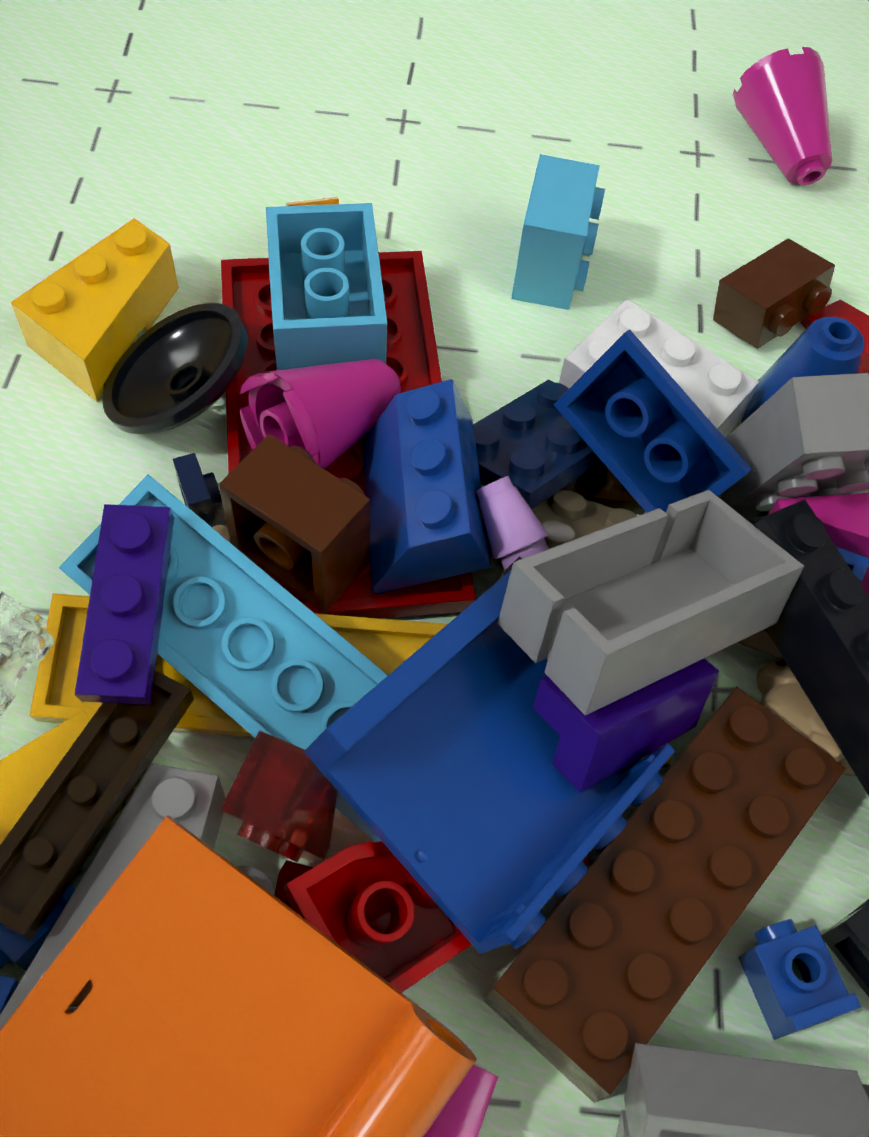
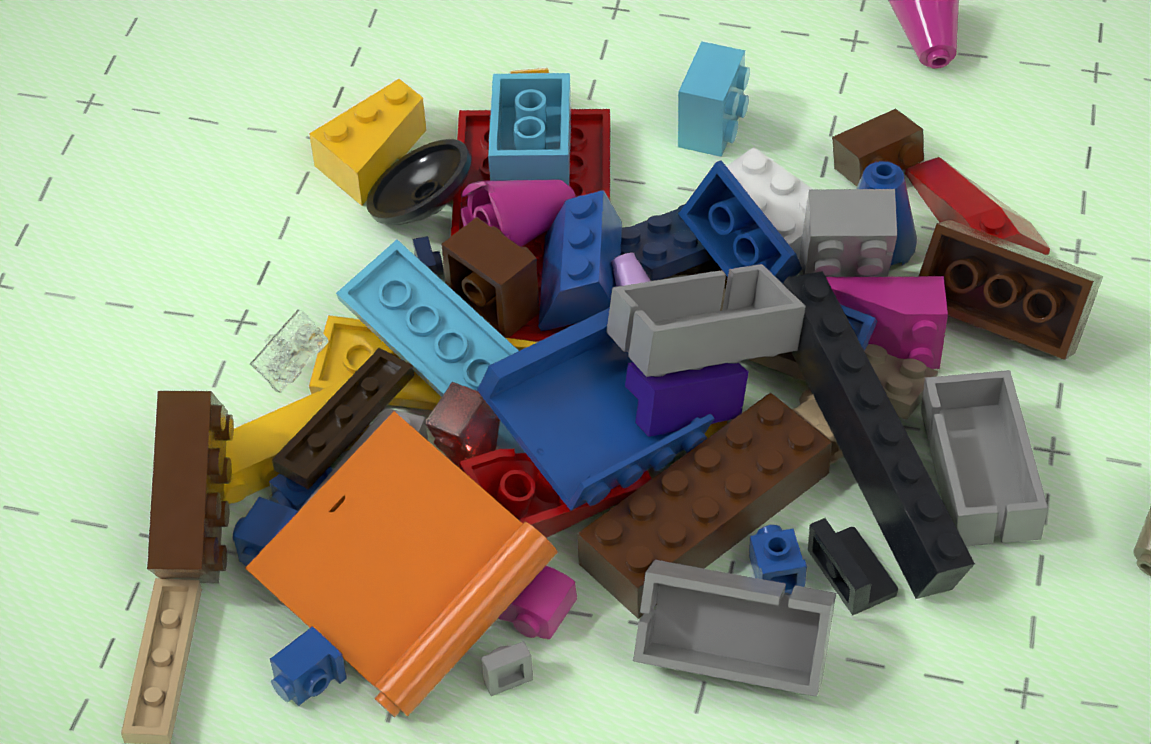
camera: 15 degrees right, 10 degrees down
(125, 605) = (377, 312): dark purple plate -> none

